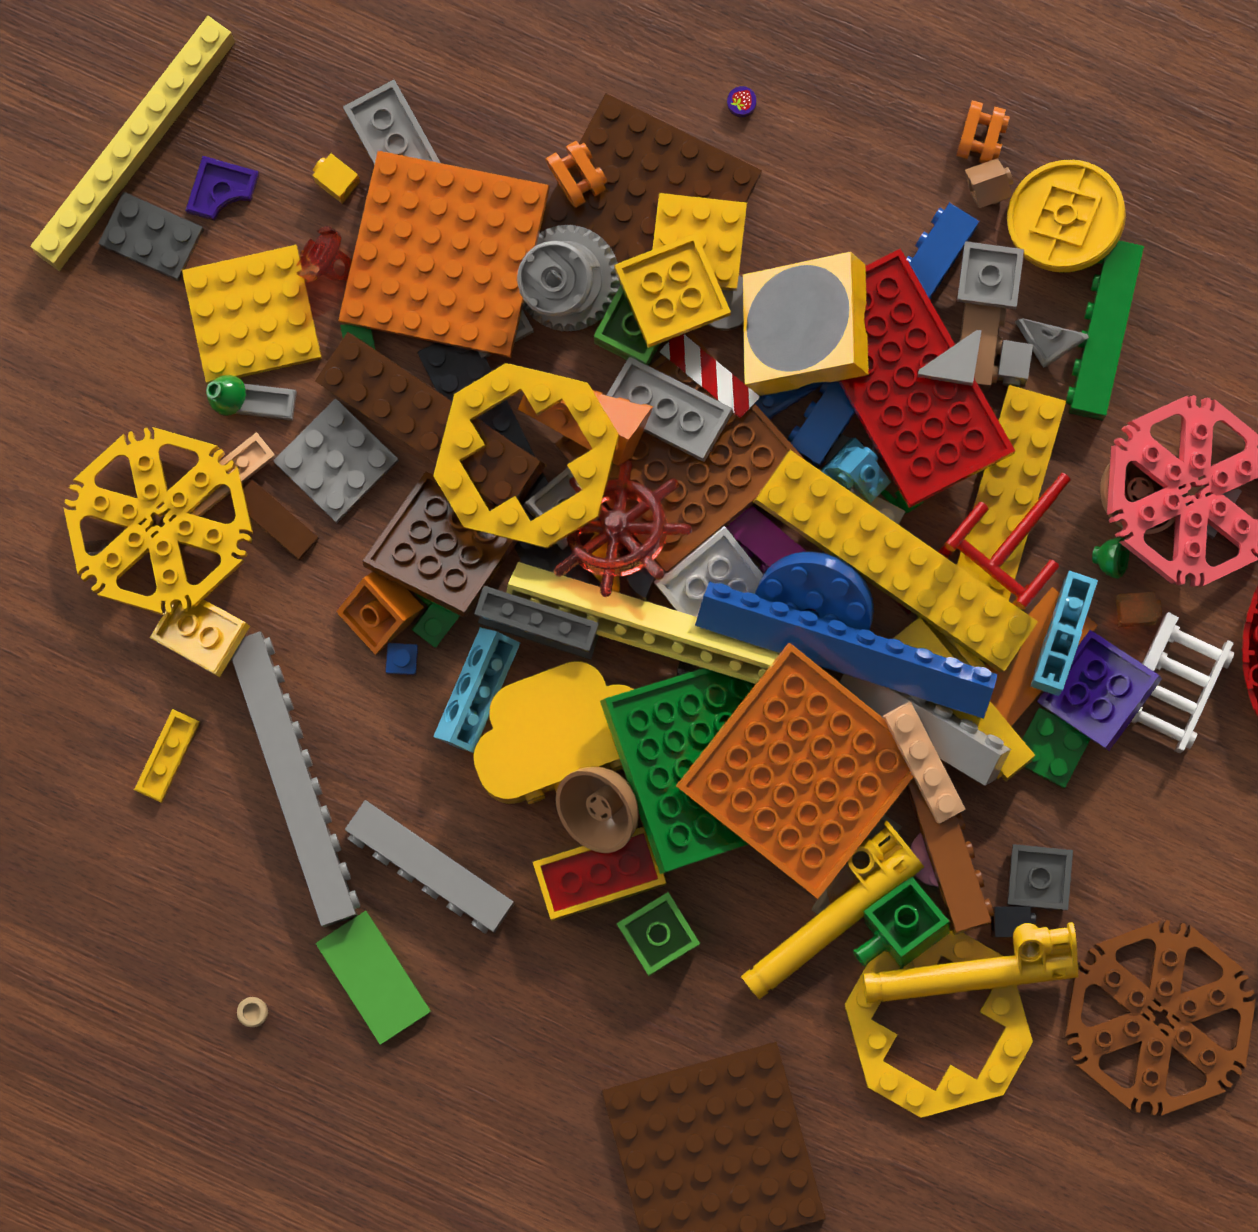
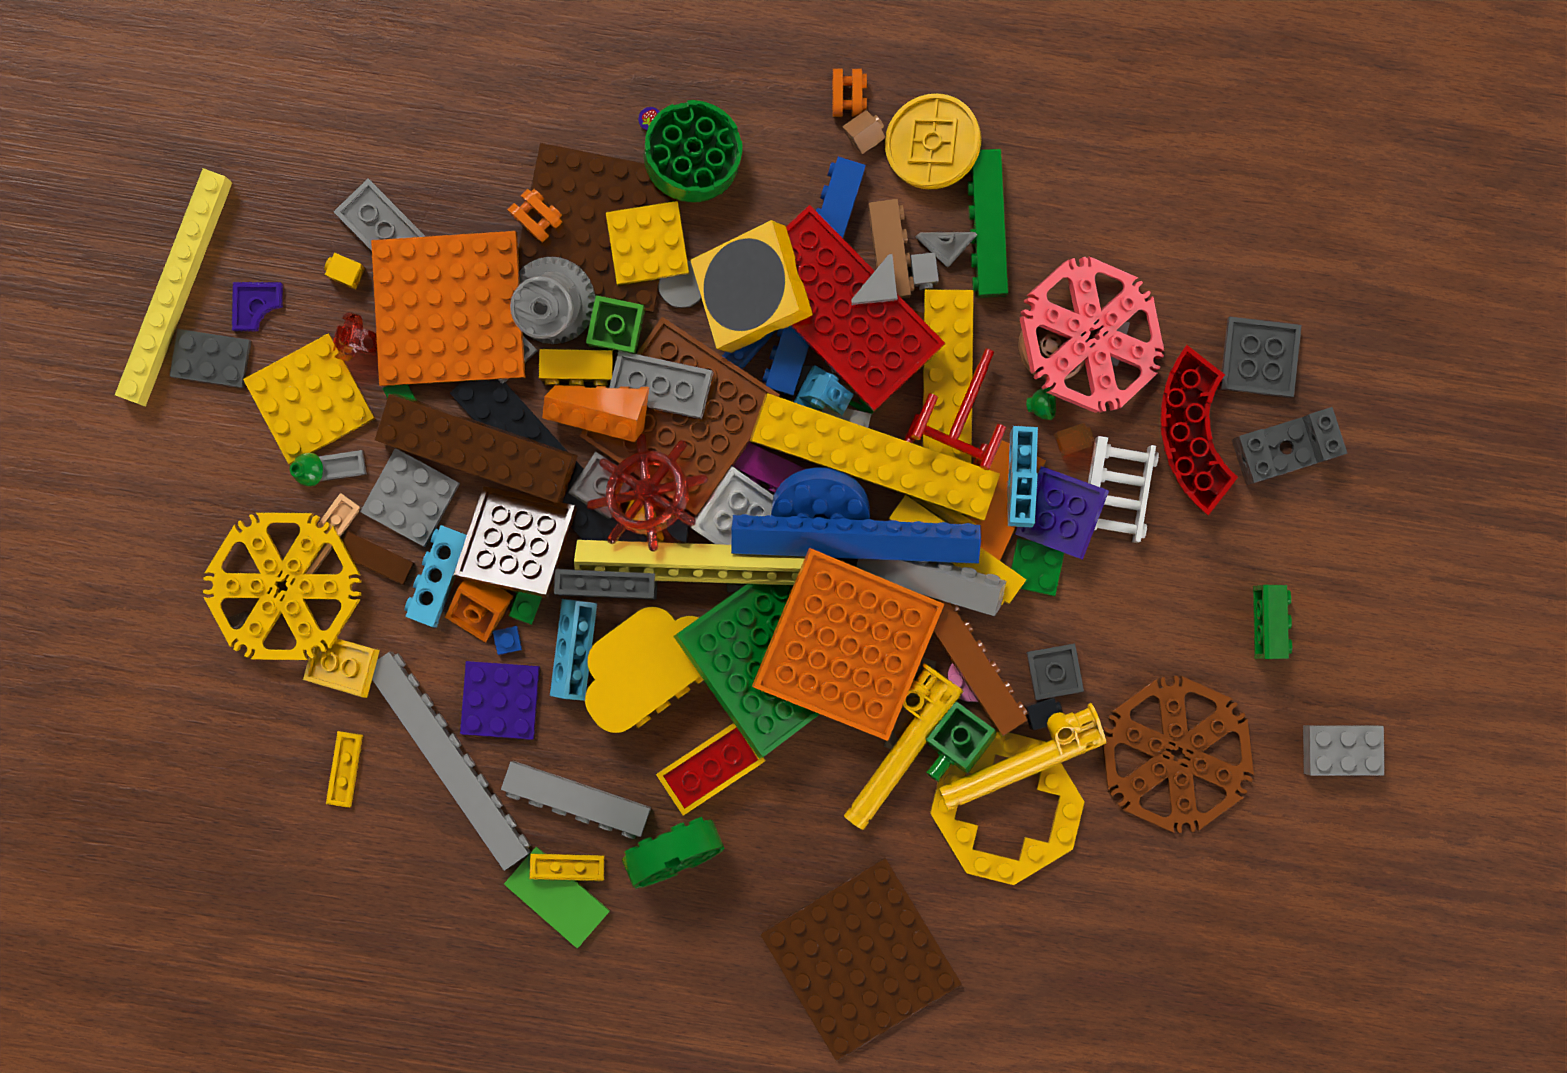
camera: 25 degrees left, 5 degrees up
(252, 1012) = (469, 951): tan tile -> none
(322, 601) = (440, 590): none -> medium azure brick
(372, 726) = (499, 700): none -> dark purple plate
(395, 944) = (566, 867): none -> yellow tile
(463, 440) = (505, 456): yellow plate -> none
(526, 957) = (672, 852): none -> green brick
(574, 360) = (576, 366): none -> yellow brick
(597, 808) = (695, 720): medium nougat piece -> none
(658, 934) = (770, 802): bright green brick -> none
(672, 290) = (638, 289): yellow plate -> none
(710, 374) = (686, 346): sticker -> none
(774, 177) = (695, 174): none -> green brick
(924, 762) = (941, 610): light nougat plate -> none
(990, 275) = (886, 206): light grey plate -> none

